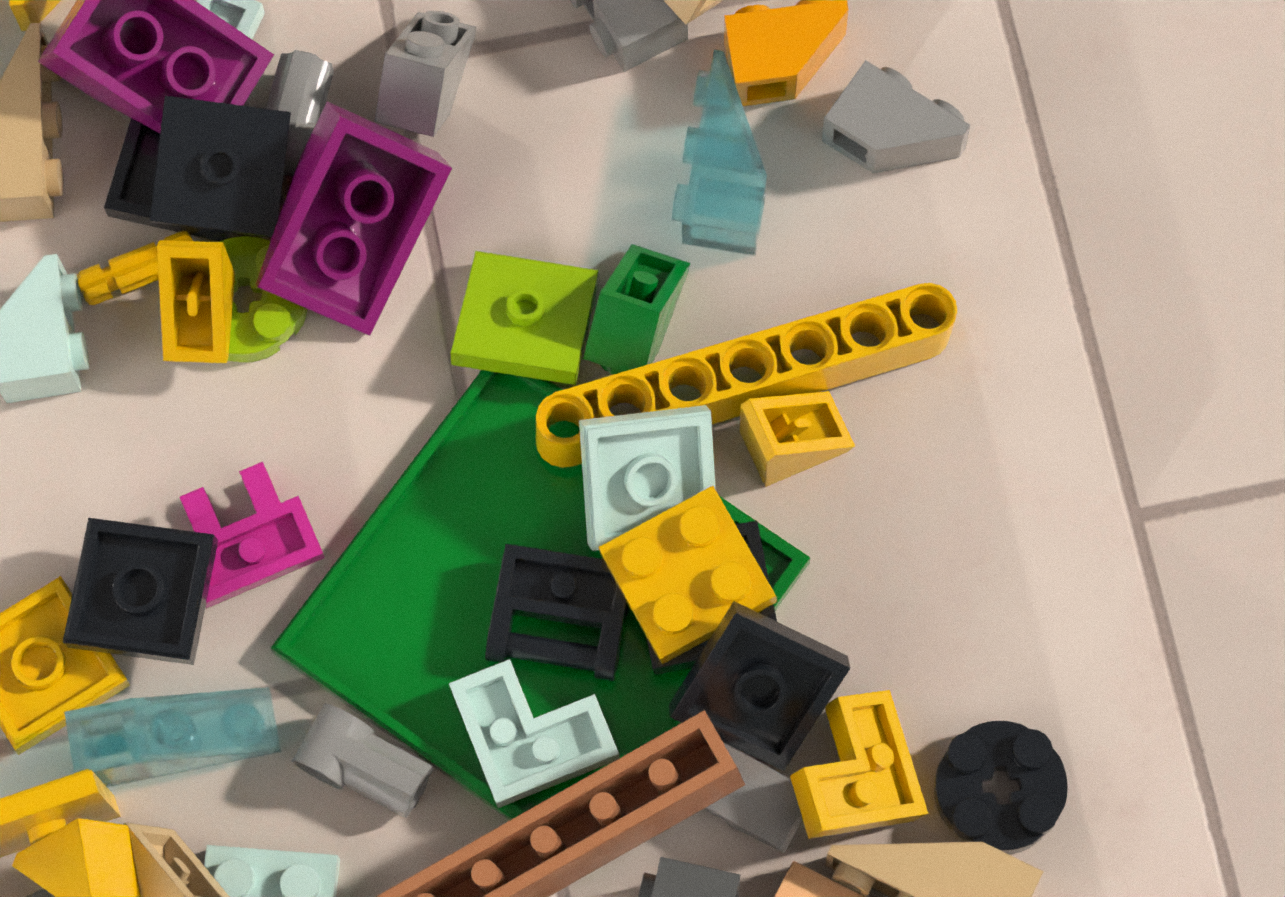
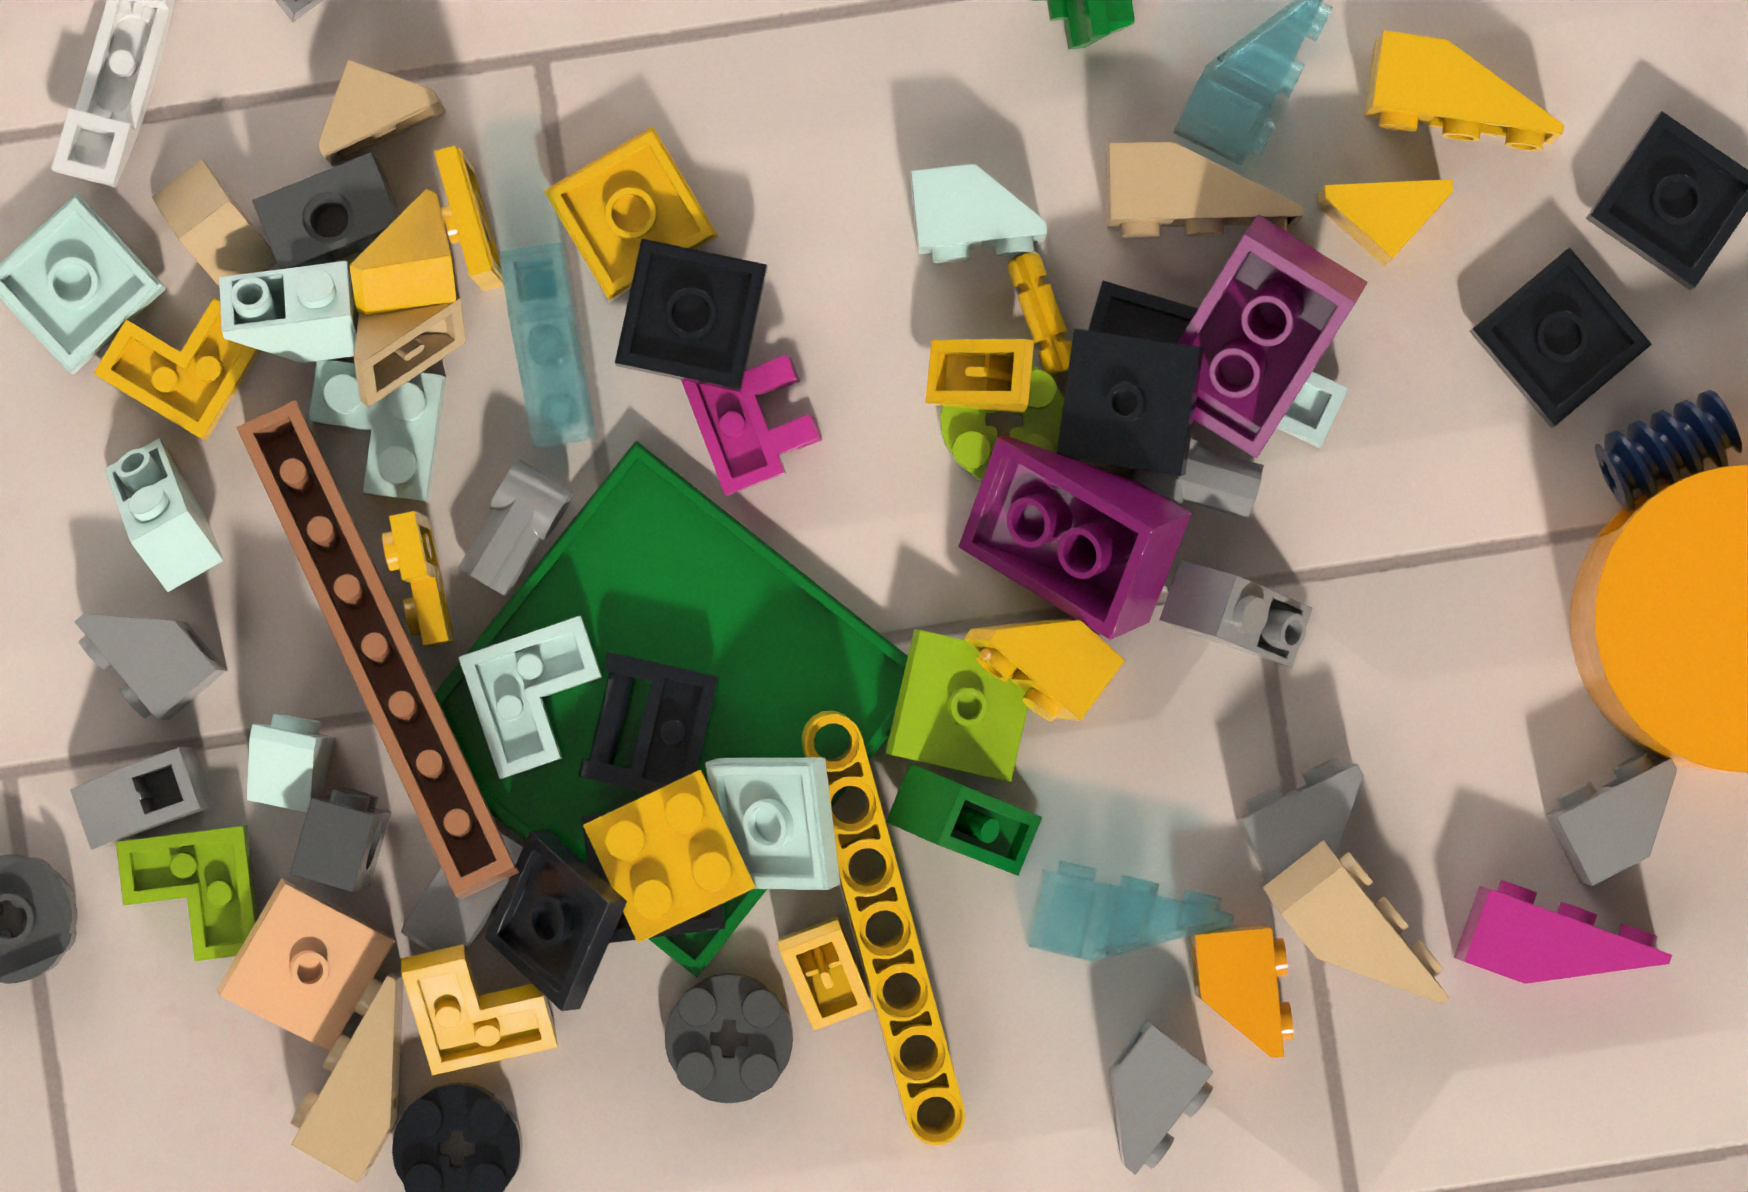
camera: 85 degrees right, 15 degrees up
(395, 848) = (414, 555): none -> yellow plate
(479, 230) = (1052, 661): none -> yellow slope
(892, 496) = (754, 1065): none -> dark grey plate

